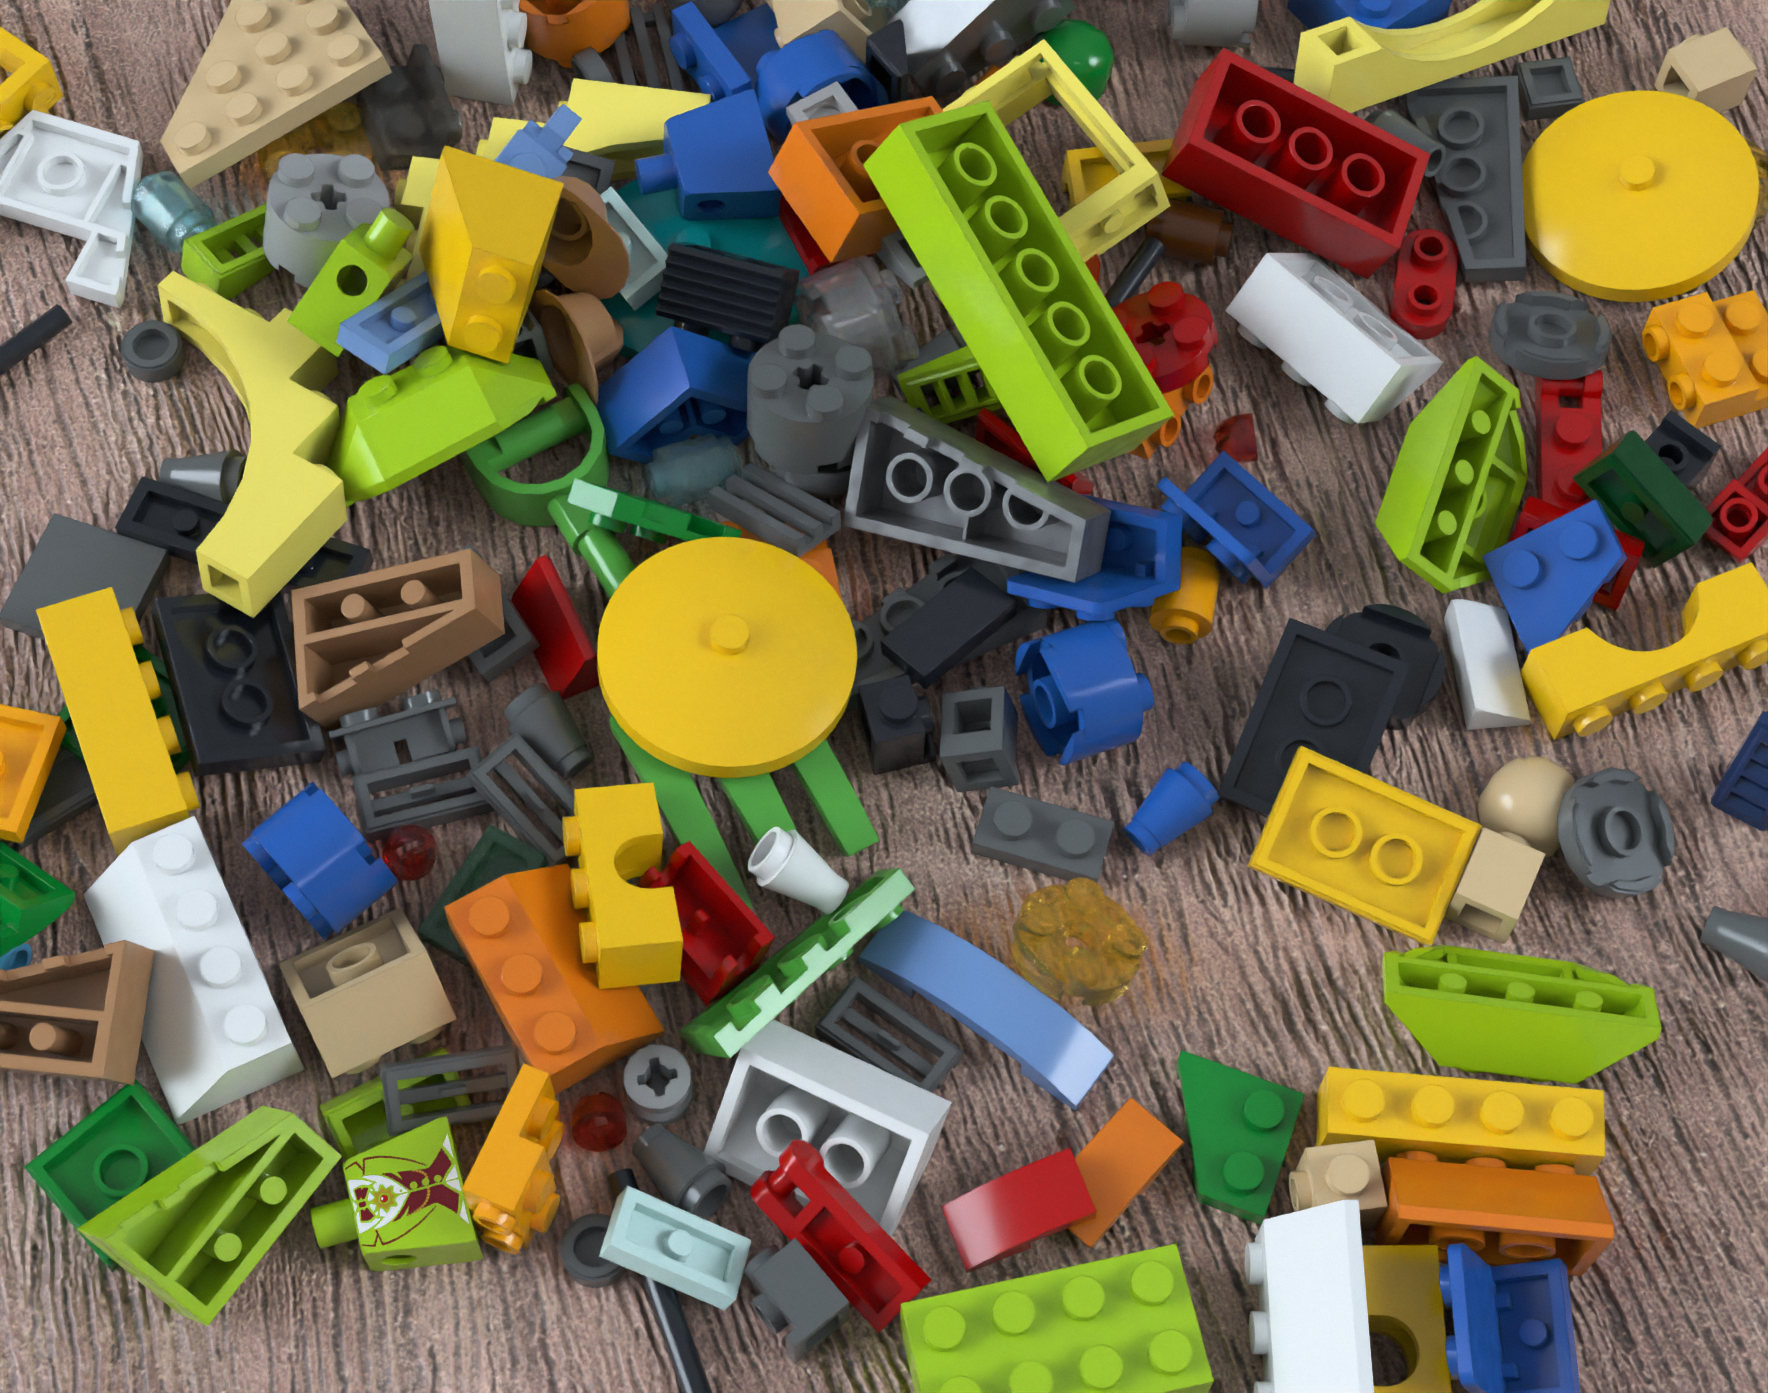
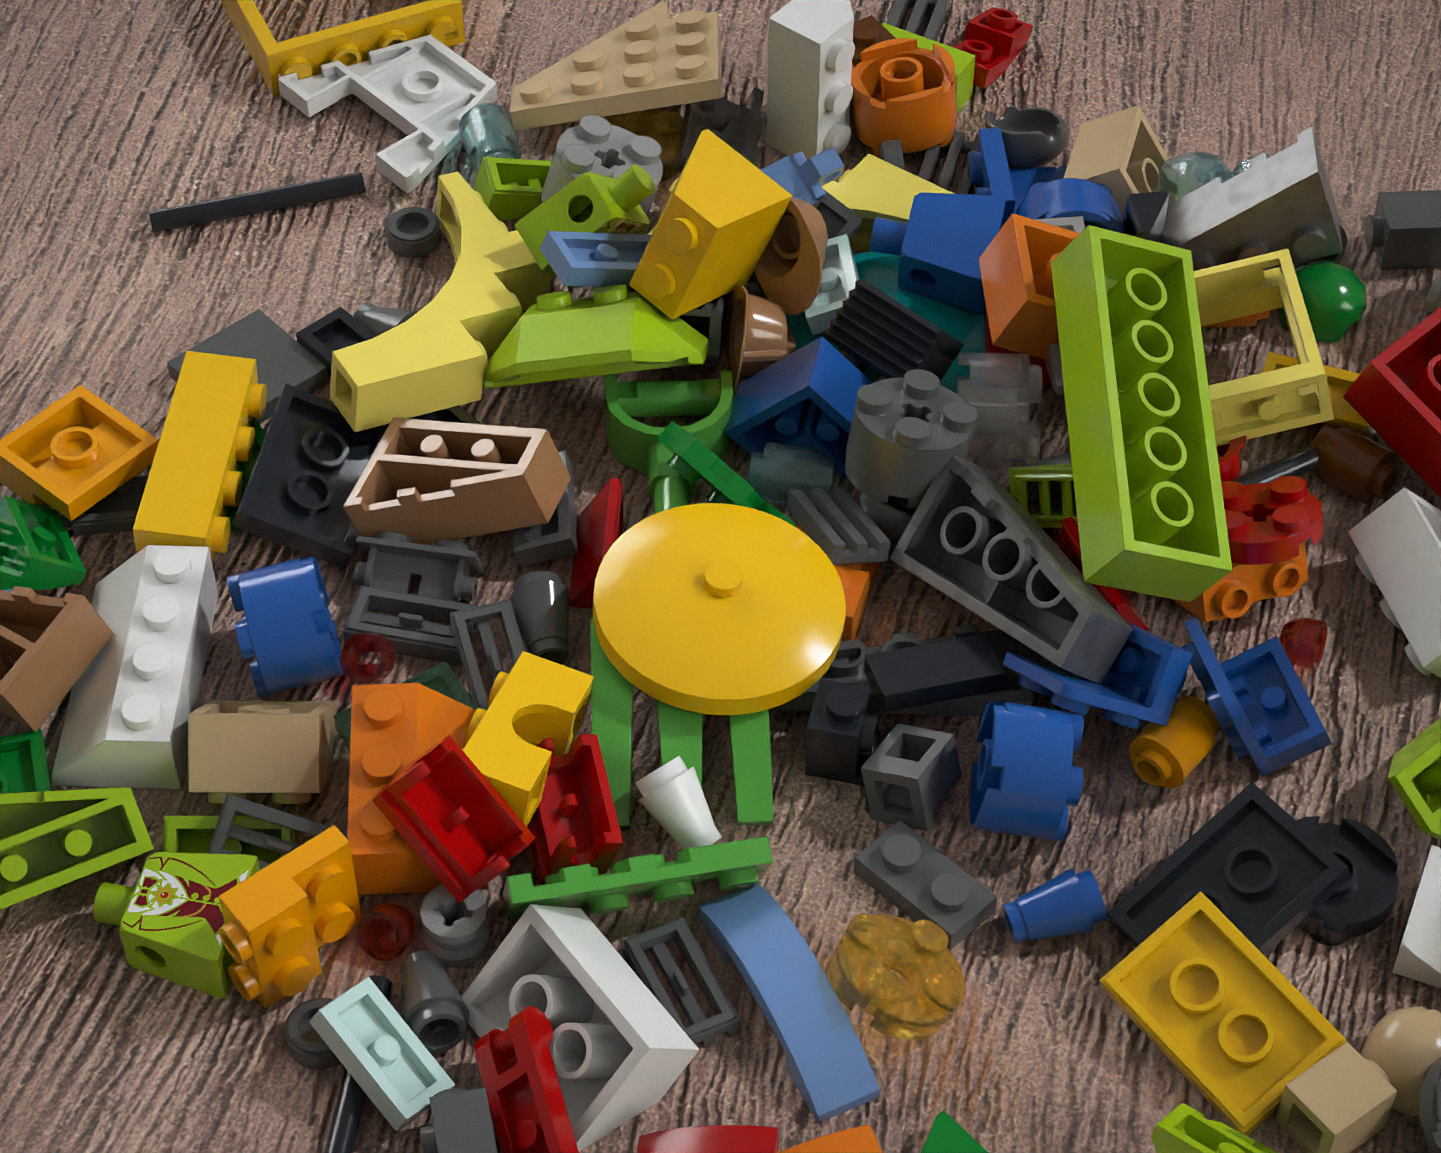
camera: 30 degrees right, 15 degrees down
(622, 998) = (453, 818): none -> red hinge

